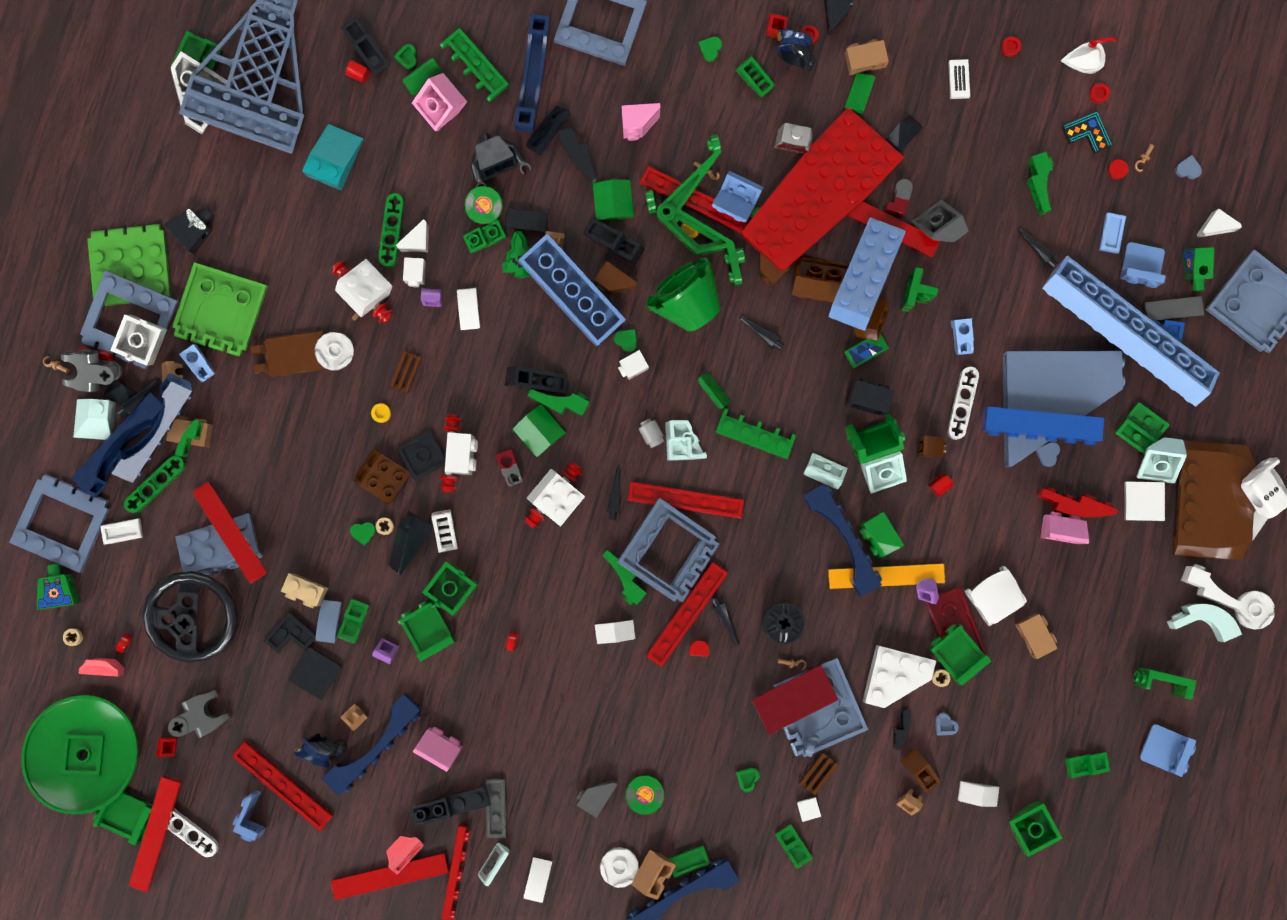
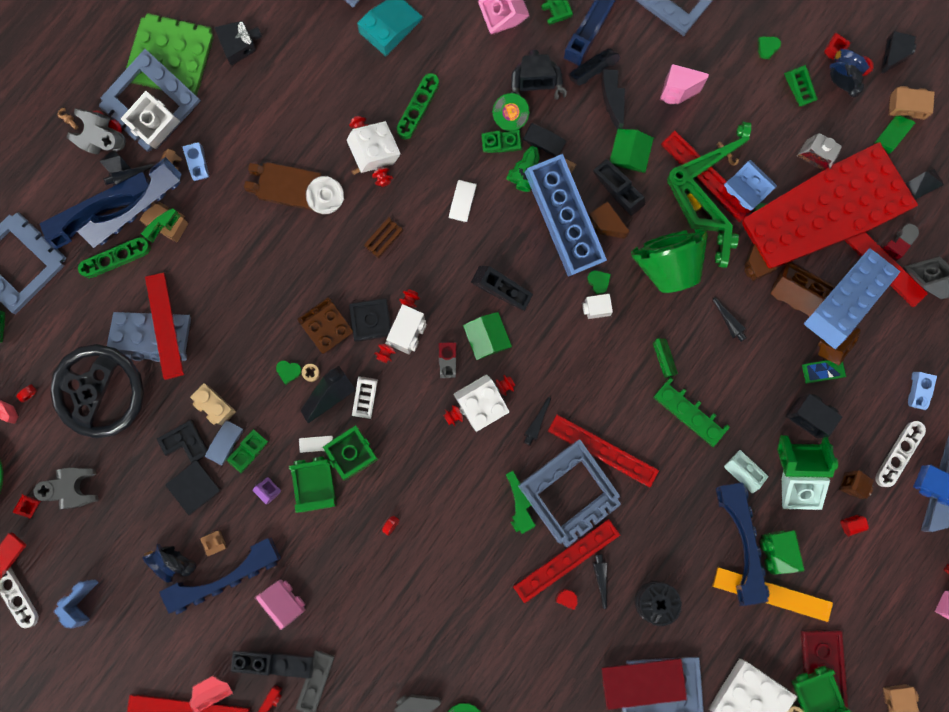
camera: 20 degrees right, 5 degrees down
(94, 419) = (83, 178): light aqua slope -> none
(121, 531) = (66, 290): white tile -> none
(219, 309) = (234, 121): bright green hinge -> none
(282, 785) = (120, 584): red tile -> none
(381, 413) = (346, 267): yellow tile -> none
(413, 591) = (313, 443): none -> white sticker
(414, 271) = (425, 149): white brick -> none
(415, 240) = (437, 122): white slope -> none
(431, 297) = (432, 178): medium lavender brick -> none
(574, 403) = (531, 322): green slope -> none
(615, 632) = (491, 552): white slope -> none
(650, 201) = (667, 158): green tile -> none
(651, 433) = (592, 375): light grey brick -> none
(682, 442) = (618, 394): light aqua slope -> none
(791, 663) = (651, 646): medium nougat hand -> none
(917, 291) = (891, 331): green bracket -> none
(927, 590) = (809, 623): medium lavender brick -> none
(996, 596) = (876, 654): white piece -> none

